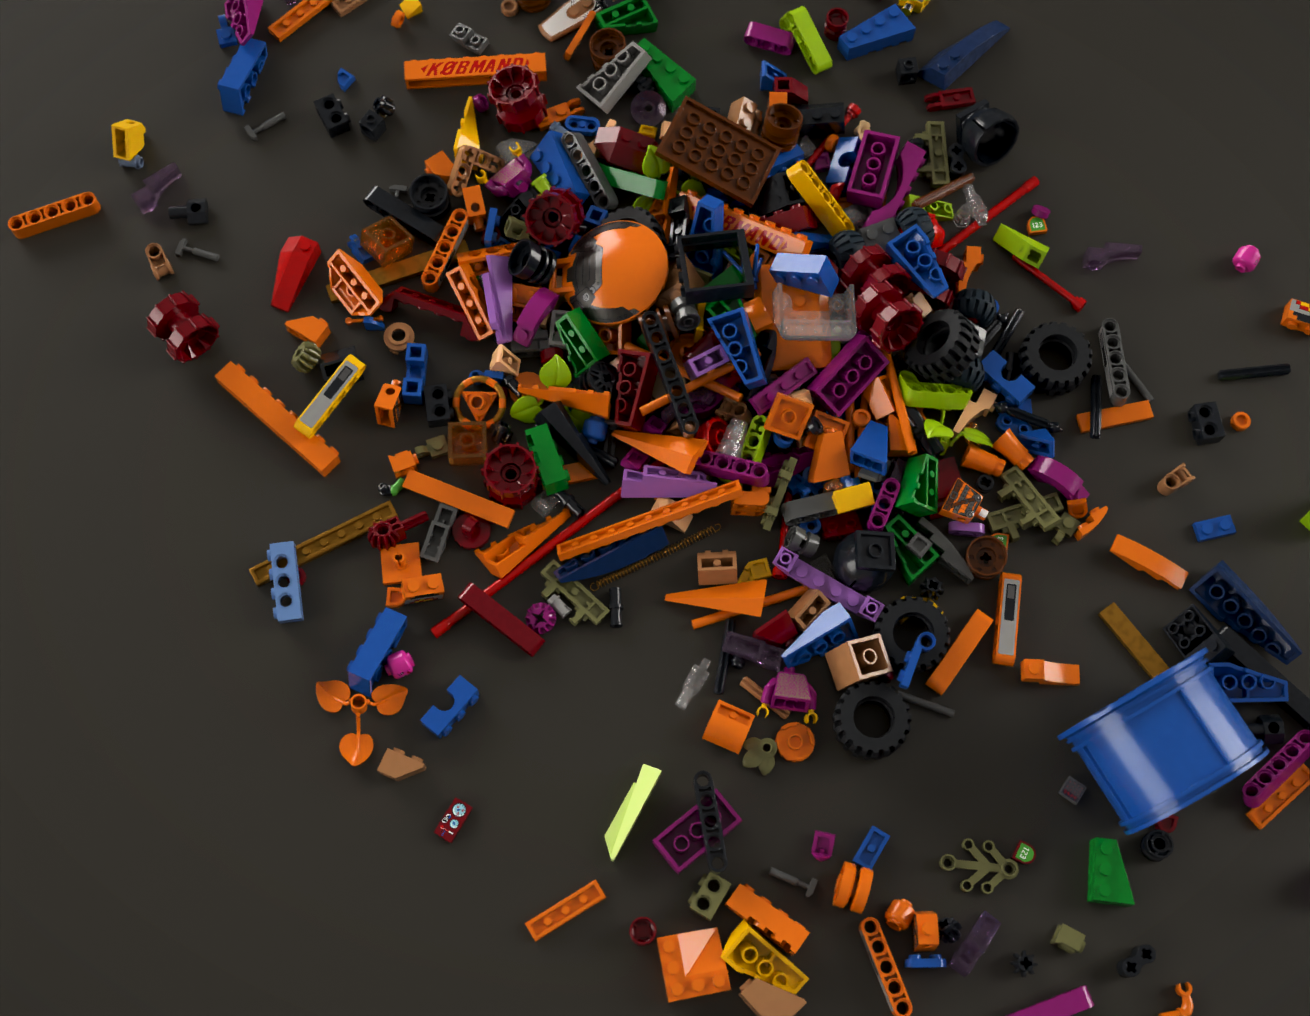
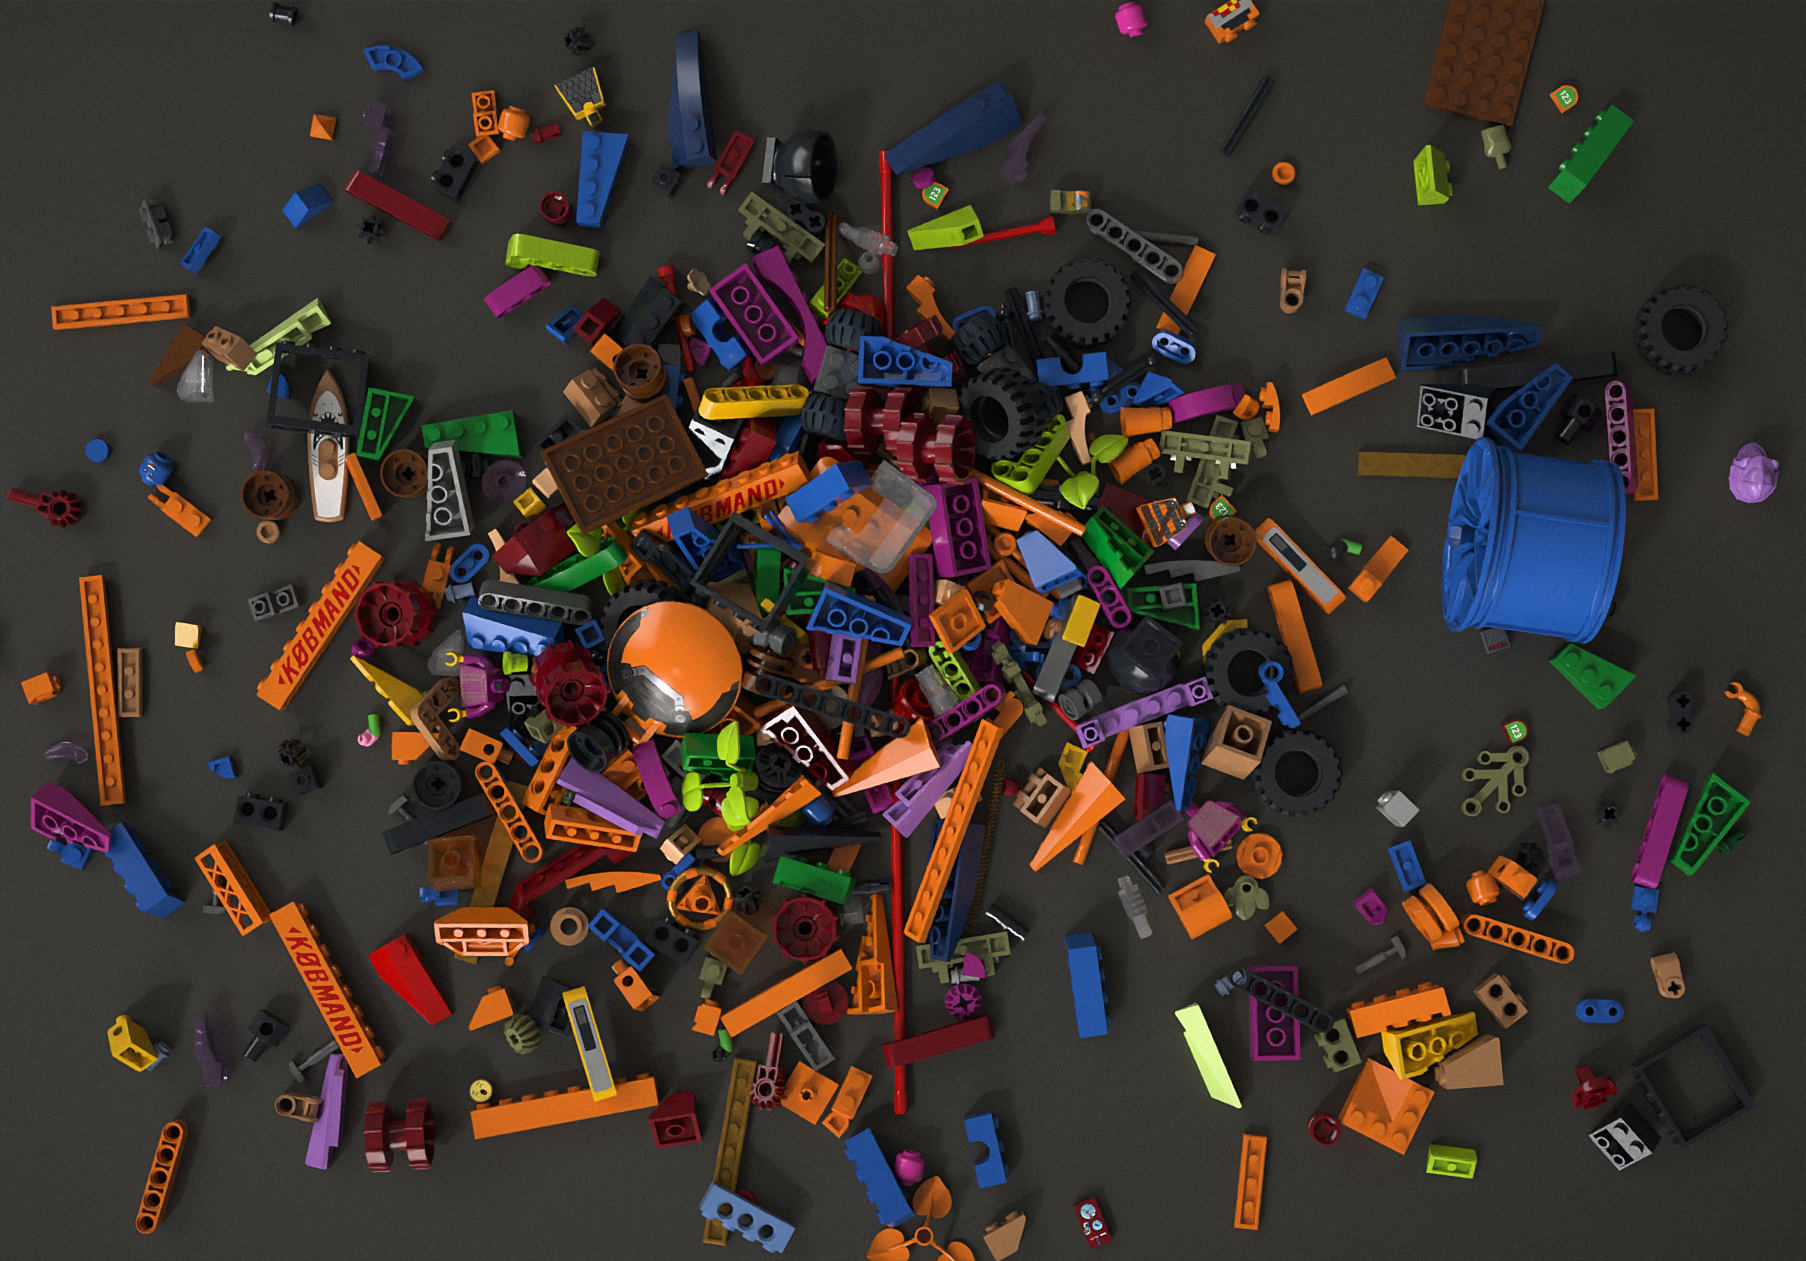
camera: 45 degrees left, 15 degrees up
(171, 284) = (331, 1114): none -> medium lavender wedge
(248, 227) = (327, 988): none -> orange brick
(250, 362) = (481, 1090): none -> light yellow tile
(277, 132) = (237, 884): none -> orange fence
(318, 492) = (676, 1121): none -> dark red slope
(432, 144) = (372, 732): none -> arm
(452, 347) = (621, 879): none -> orange slope
(569, 604) = (973, 966): none -> magenta tile
(574, 360) = (735, 804): none -> lime plant
(614, 689) = (1086, 985): none -> blue wedge
(687, 785) = (1223, 986): none -> sand blue pin
(707, 543) = (1010, 787): none -> dark red hinge
(758, 794) = (1280, 927): none -> orange tile
(826, 989) = (1497, 1003): none -> medium nougat brick
(845, 917) = (1449, 939): none -> orange cone
(905, 806) = (1396, 808): none -> light grey brick
(1020, 334) = (1034, 306): none -> sand blue pin
(1045, 639) = (1342, 546): none -> arm
(1074, 435) = (1173, 348): none -> blue plate
(1095, 211) = (961, 130): none -> dark blue wedge
(1104, 305) = (1070, 202): none -> olive leg

